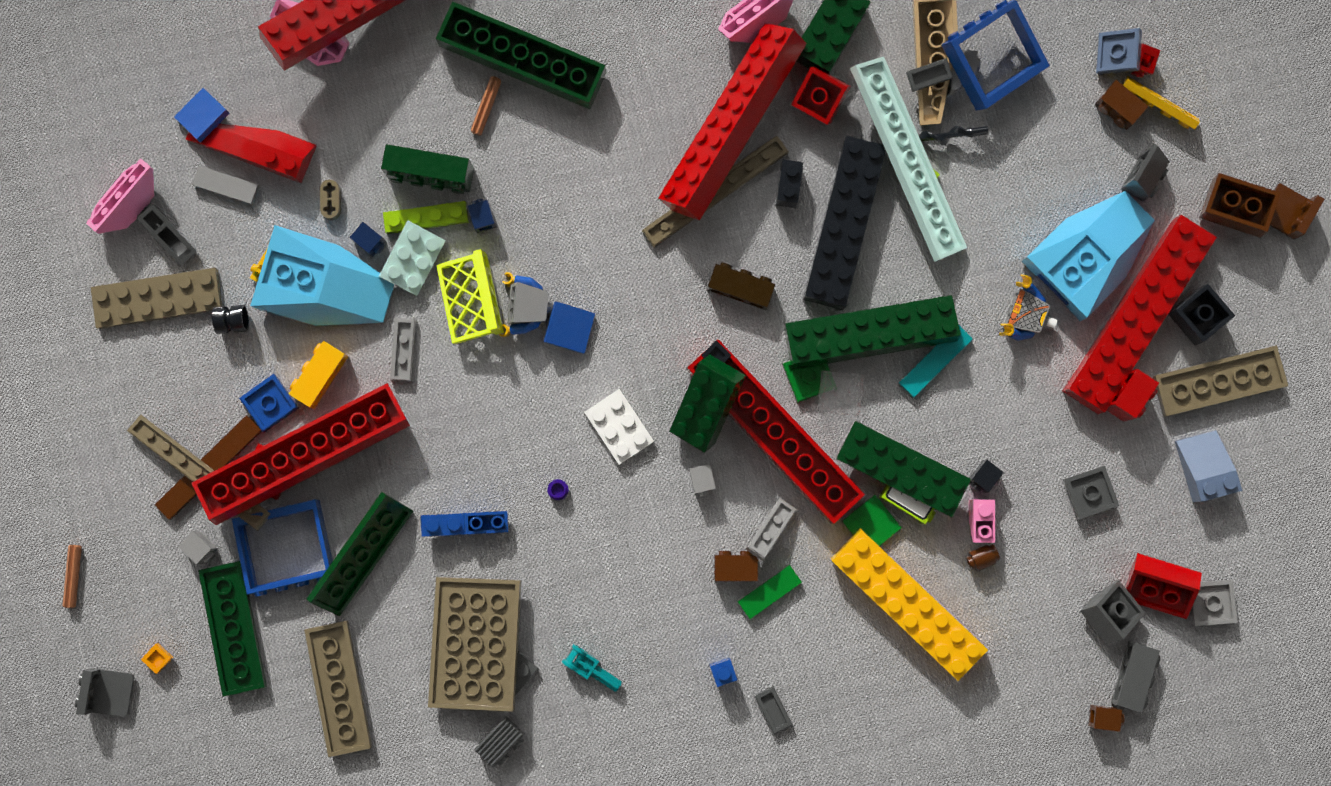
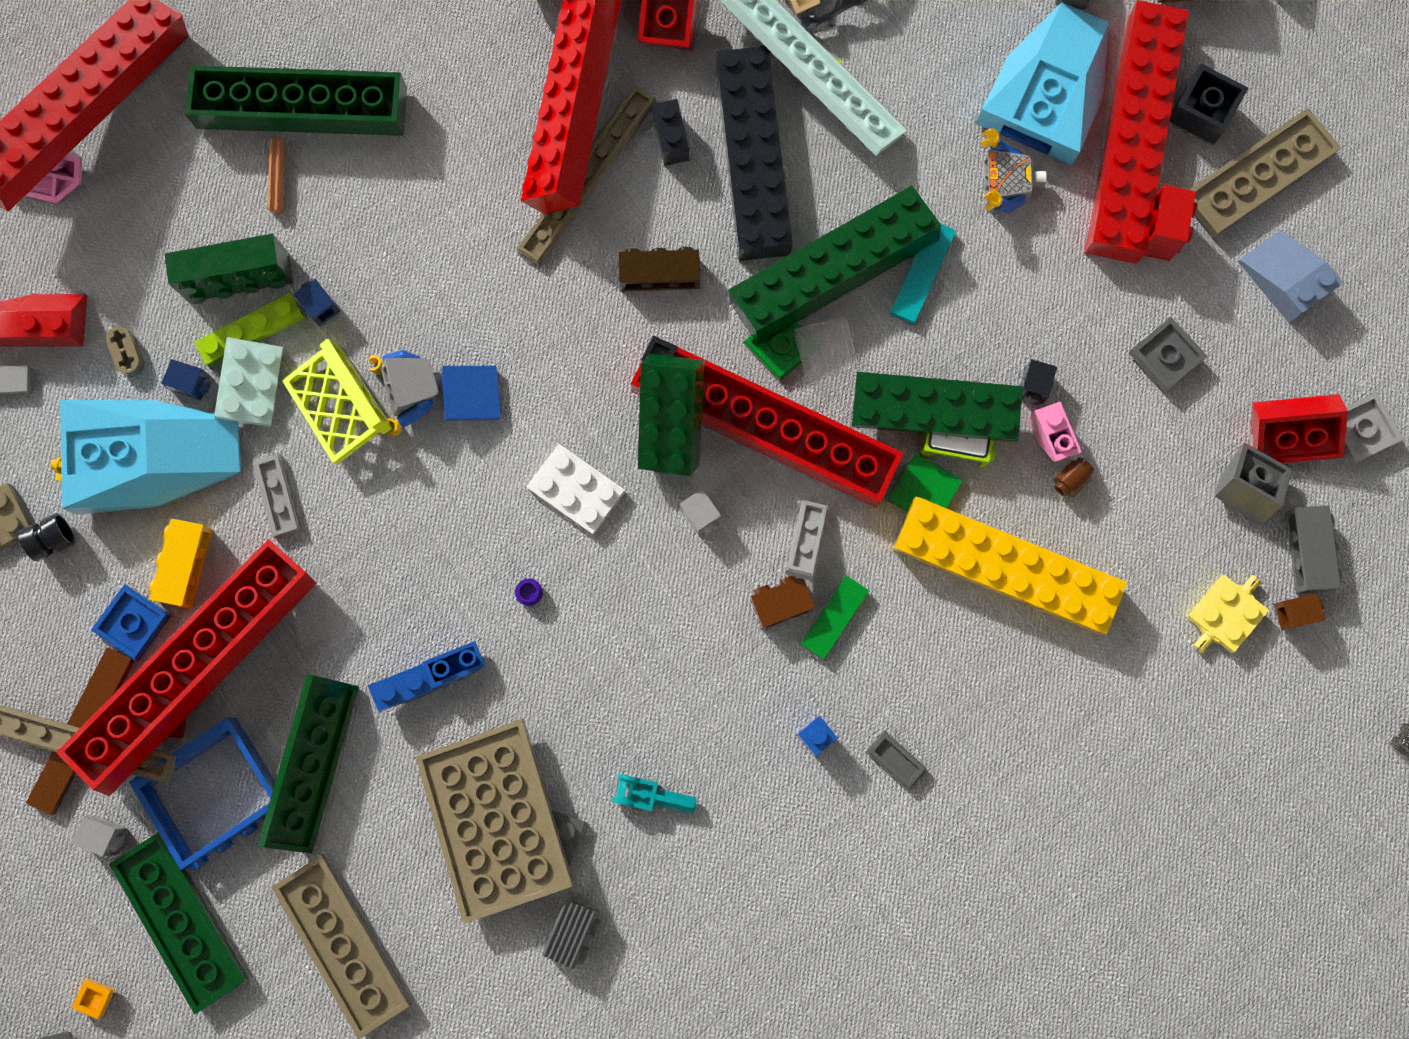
camera: 20 degrees left, 5 degrees down
(1054, 698) = (1227, 614): none -> light yellow plate

